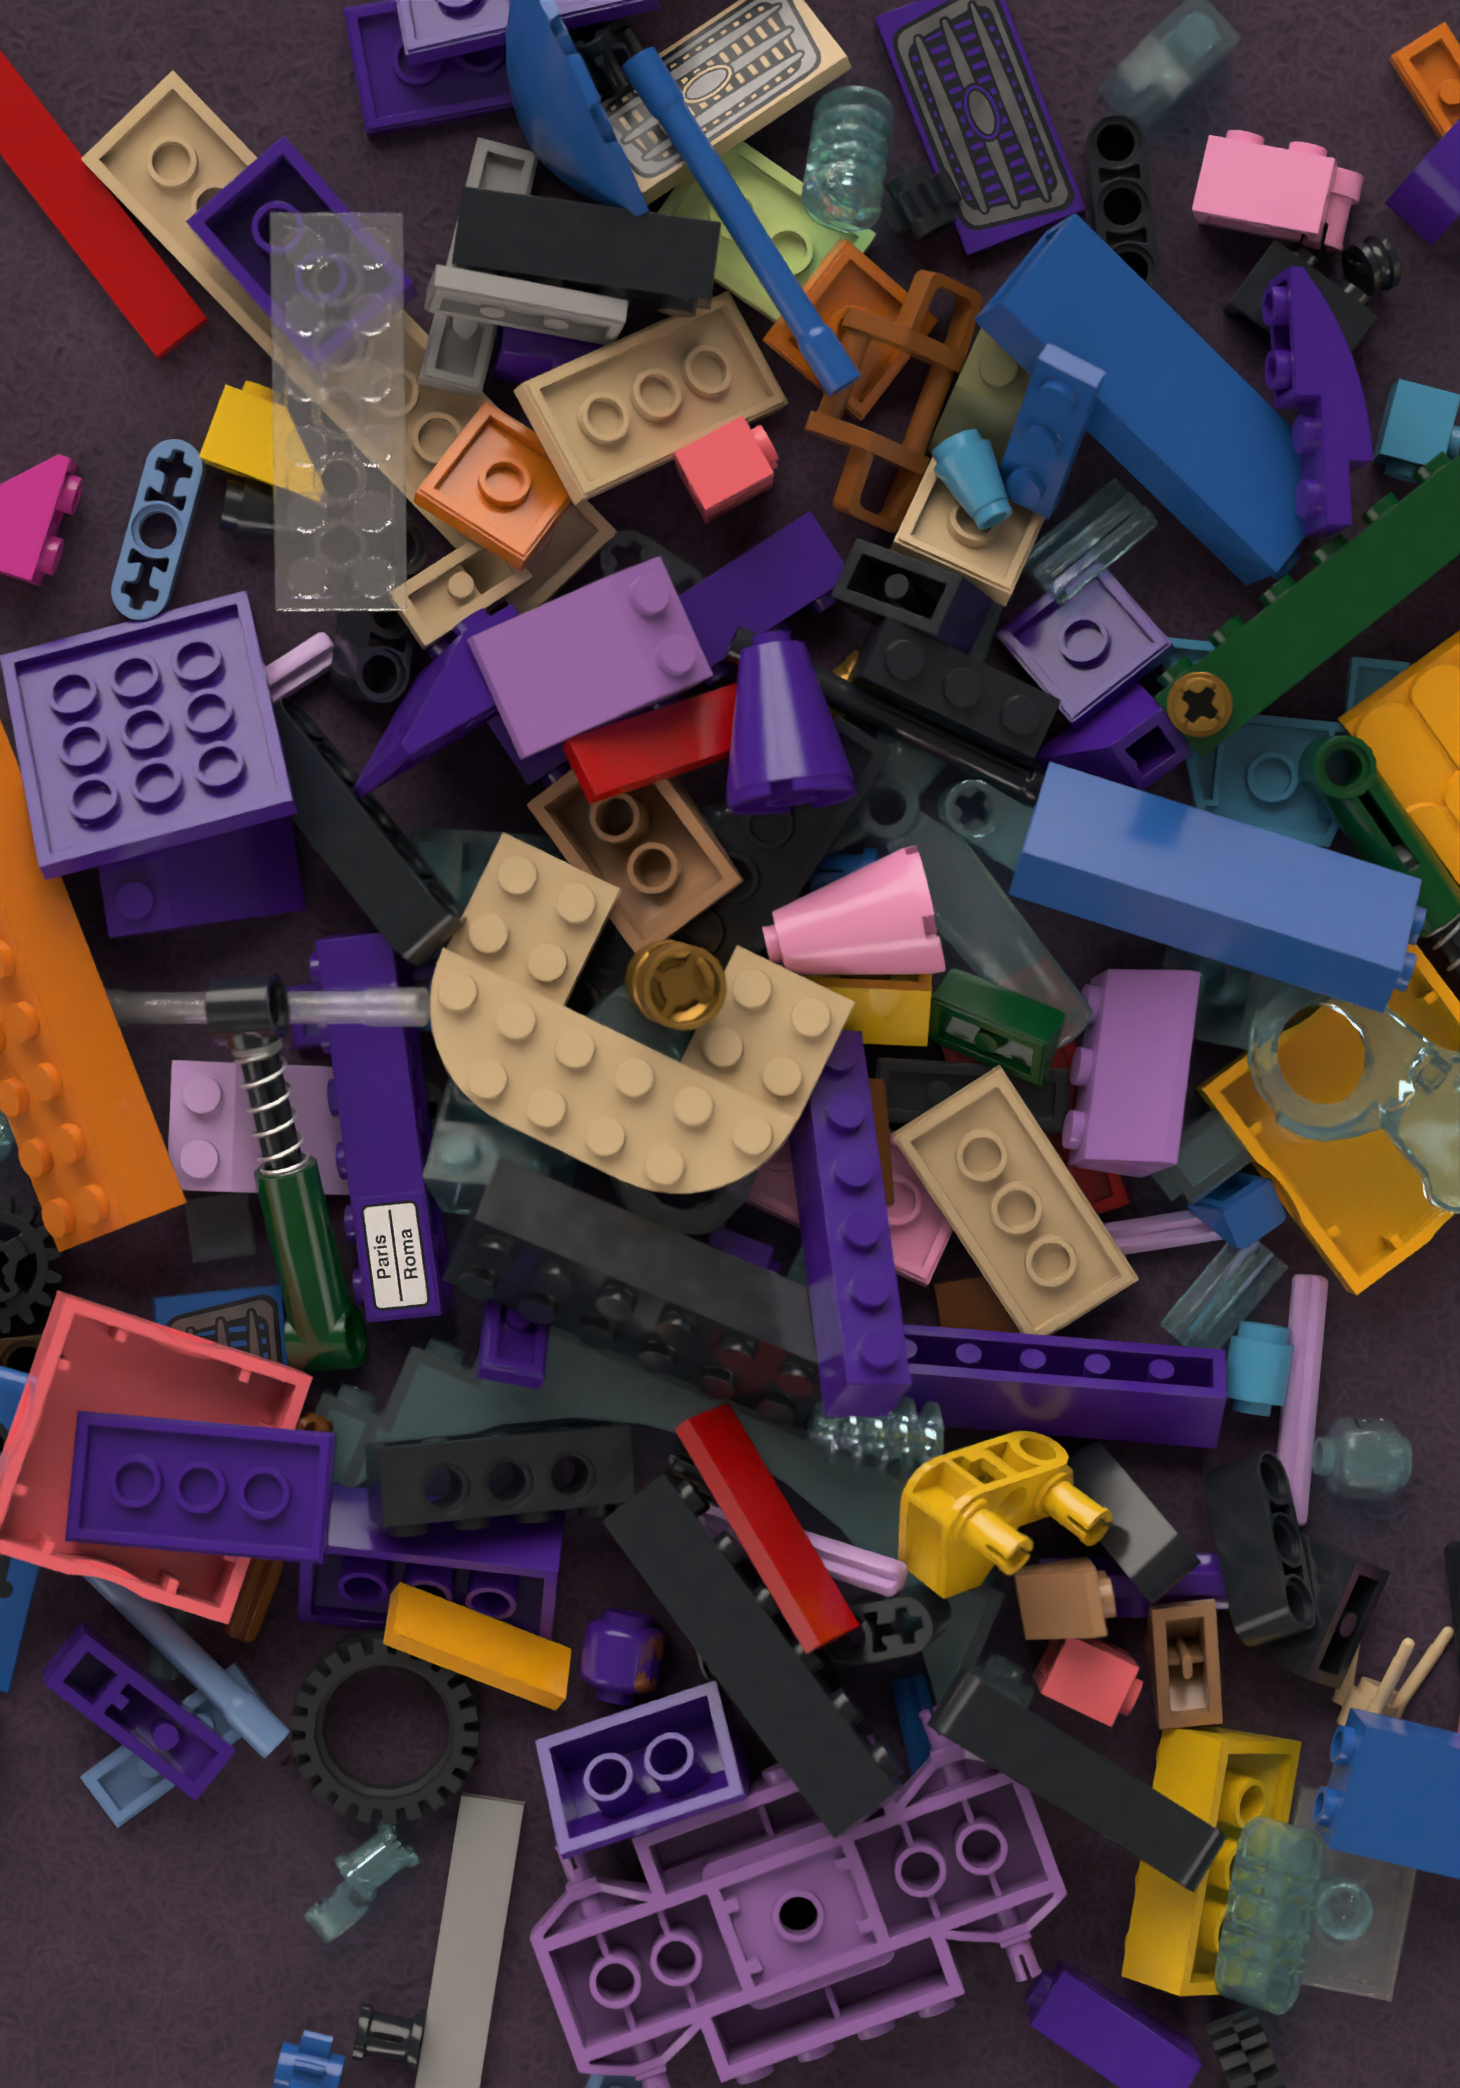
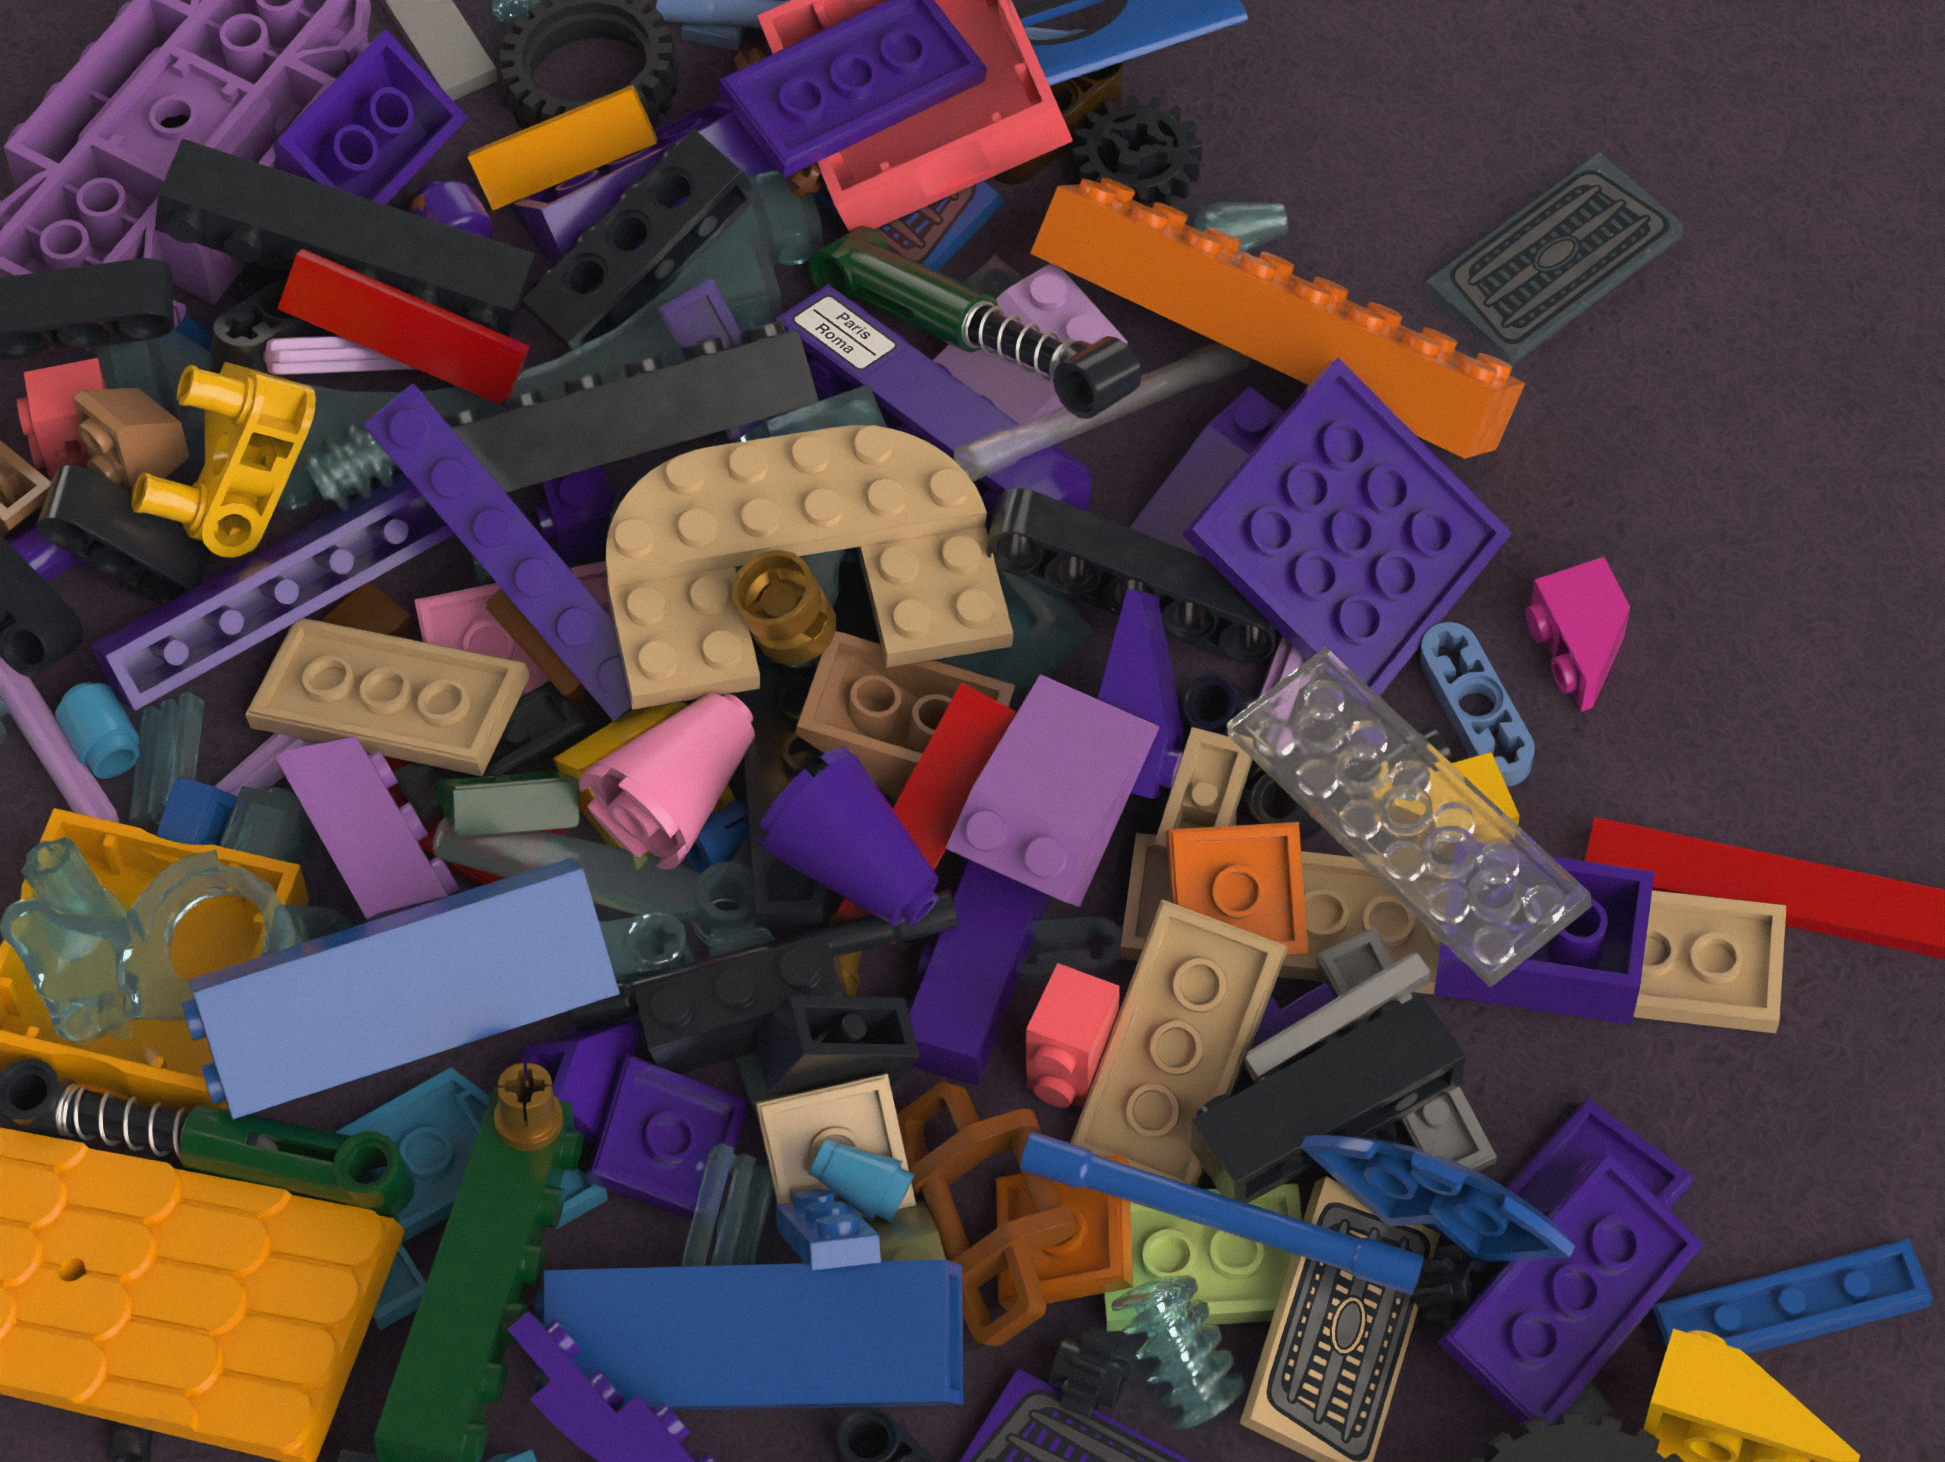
camera: 145 degrees right, 30 degrees down
(1395, 1197) = (66, 881): none -> clear light blue piece

